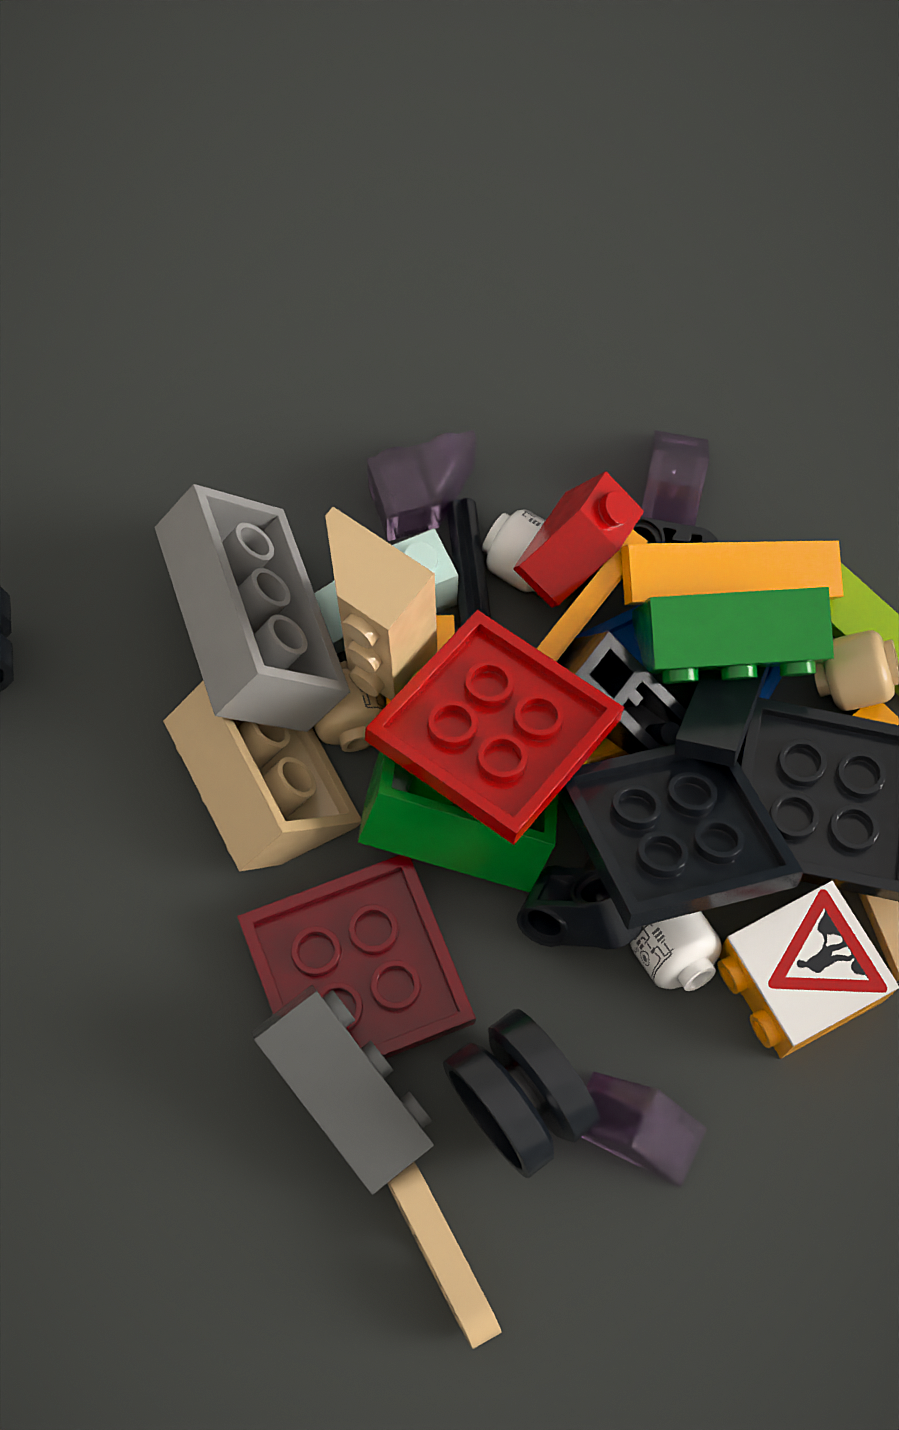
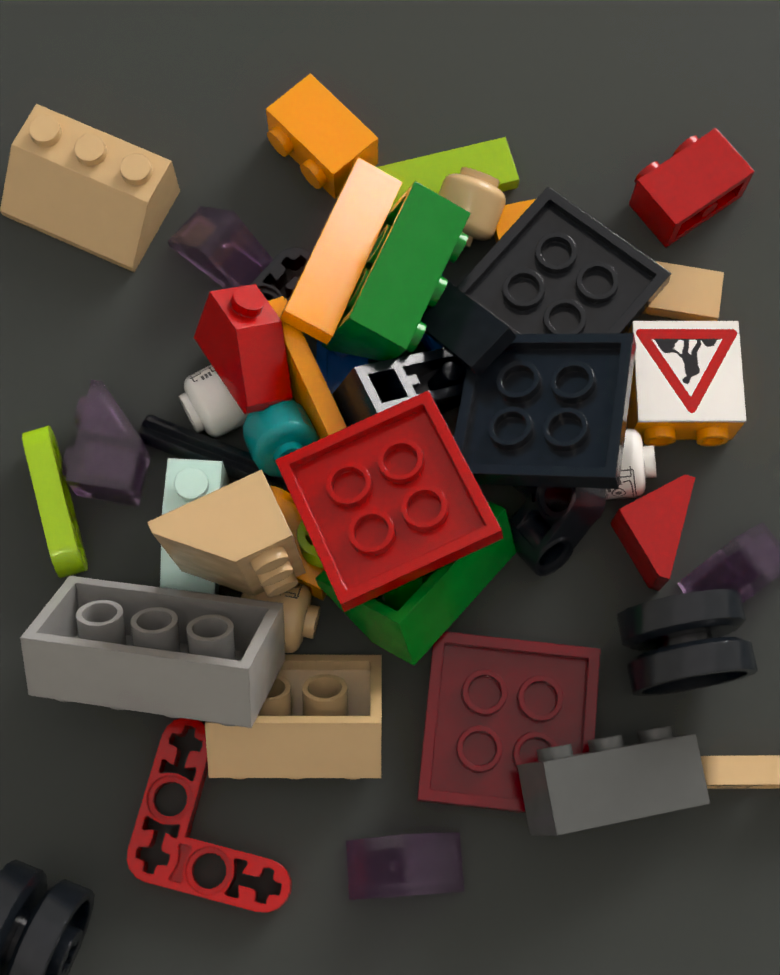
camera: 60 degrees left, 5 degrees up
(91, 742) = (187, 851): none -> red beam
(174, 943) = (404, 865): none -> clear purple slope
(345, 466) = (54, 502): none -> lime beam
(521, 610) = (277, 433): none -> teal head
(635, 1015) = (653, 528): none -> red slope
(660, 336) = (87, 187): none -> tan slope
(847, 499) = (319, 134): none -> light orange brick

